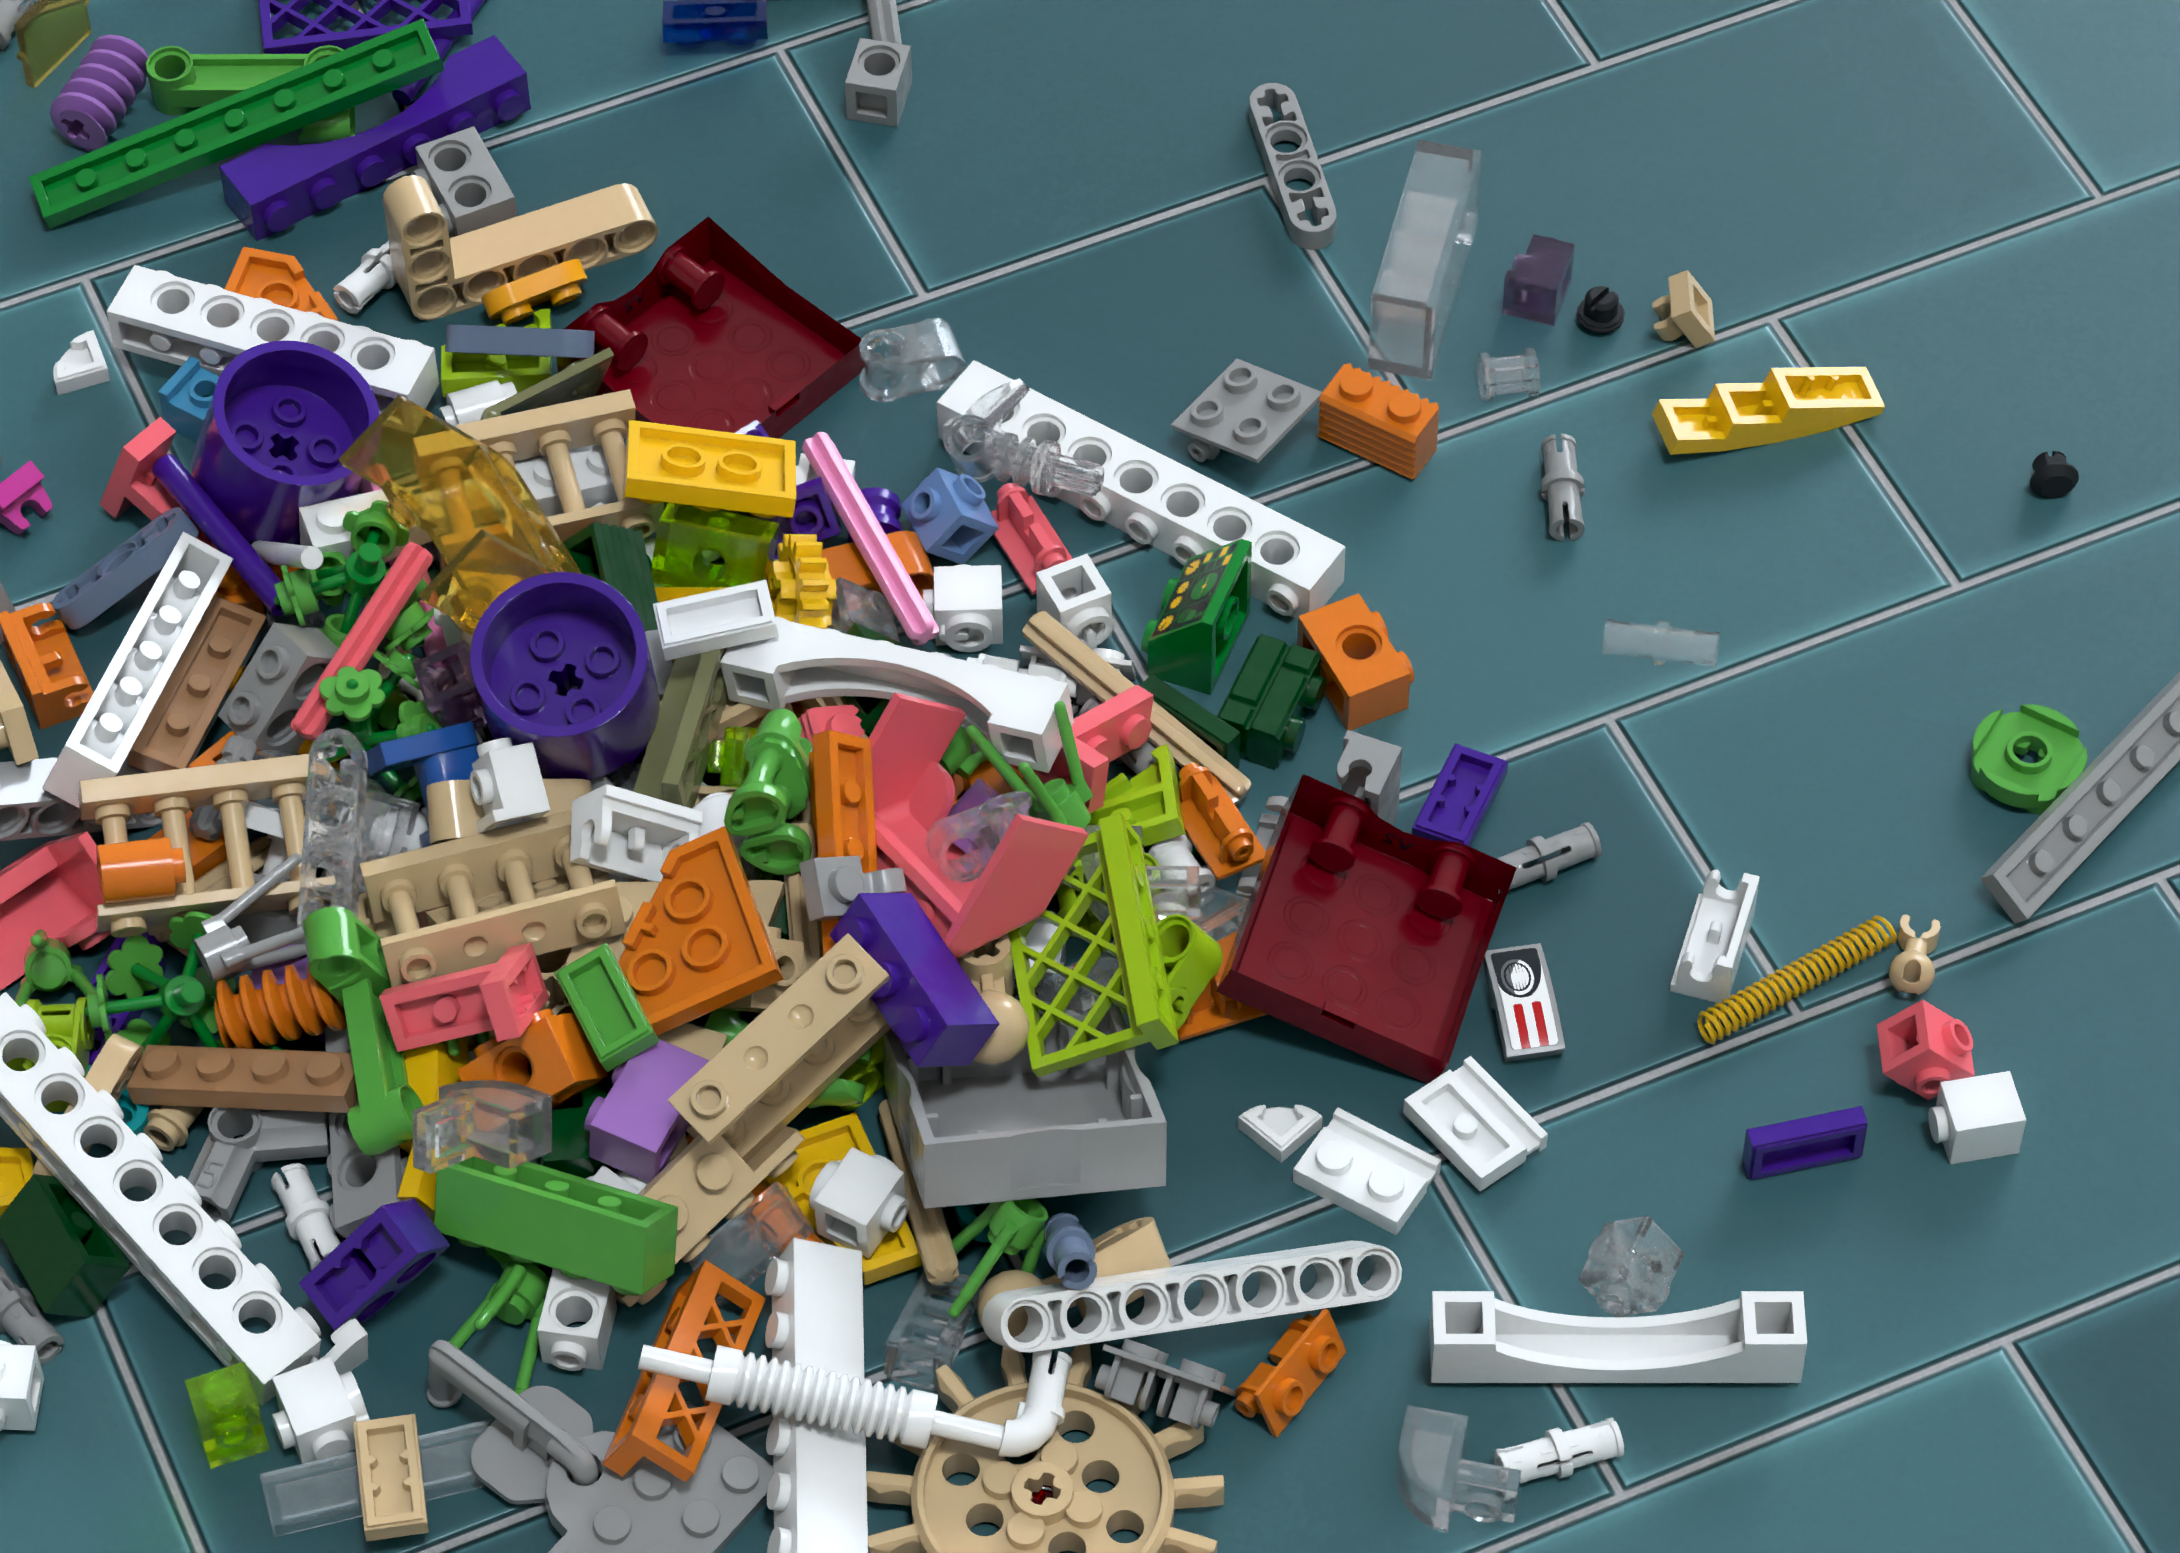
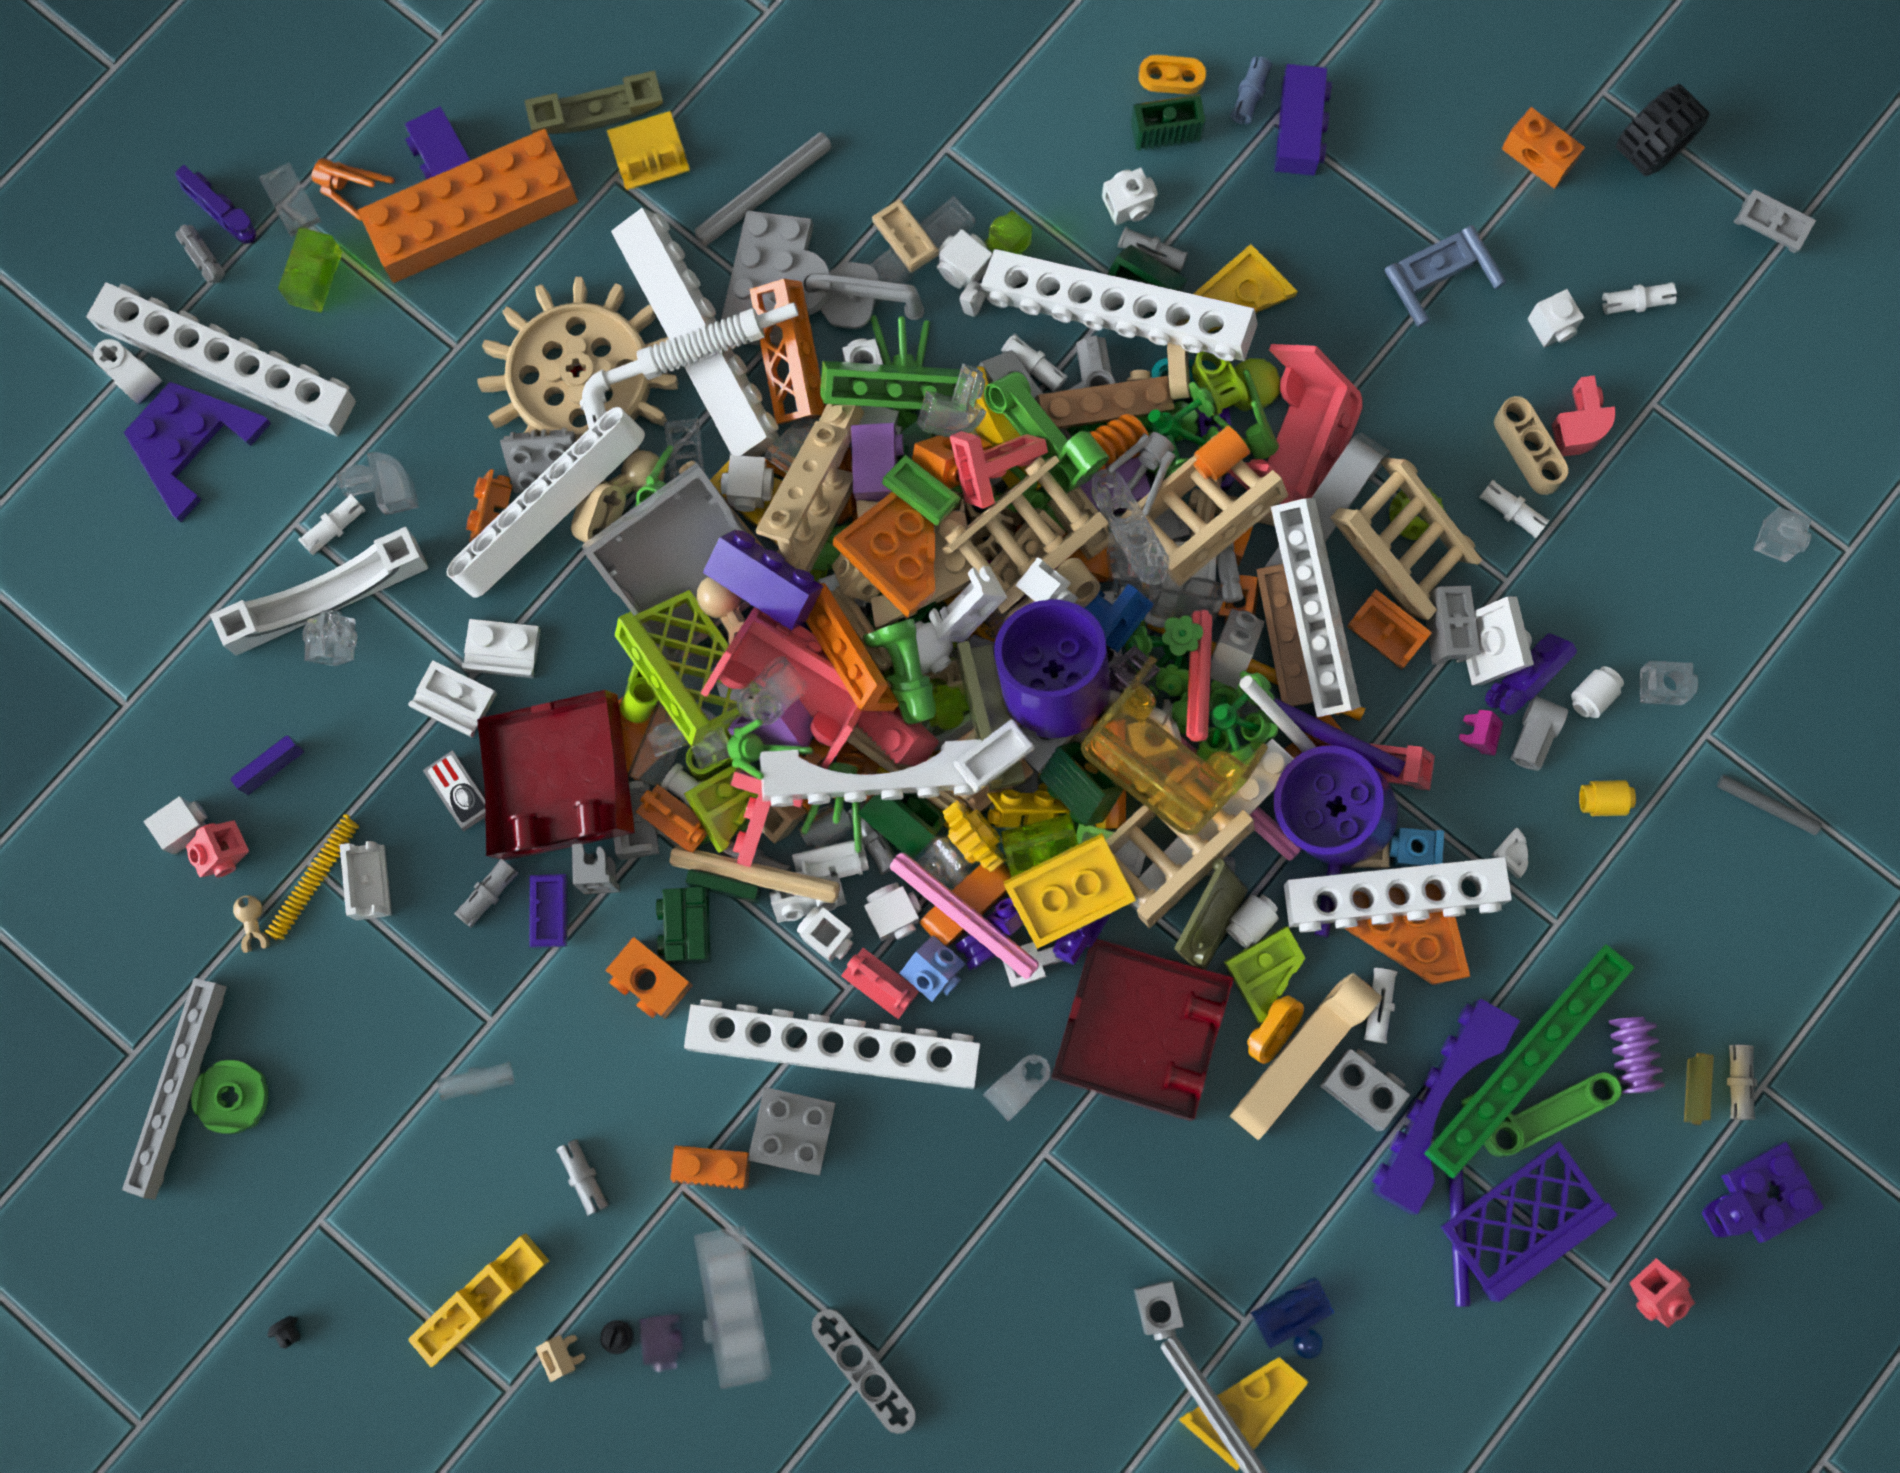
camera: 155 degrees right, 25 degrees up
(122, 569) = (1395, 697): sand blue beam -> none
(374, 1263) = (975, 331): dark purple brick -> none
(519, 341) = (1225, 962): sand blue beam -> none
(835, 882) = (828, 612): light grey plate -> none
(1006, 457) = (911, 1013): clear piece -> none
(1070, 1251) = (610, 477): sand blue pin -> none
(1201, 618) = (749, 960): green slope -> none
(1280, 1129) = (559, 655): white tile -> none
(1508, 374) = (650, 1249): clear bush -> none

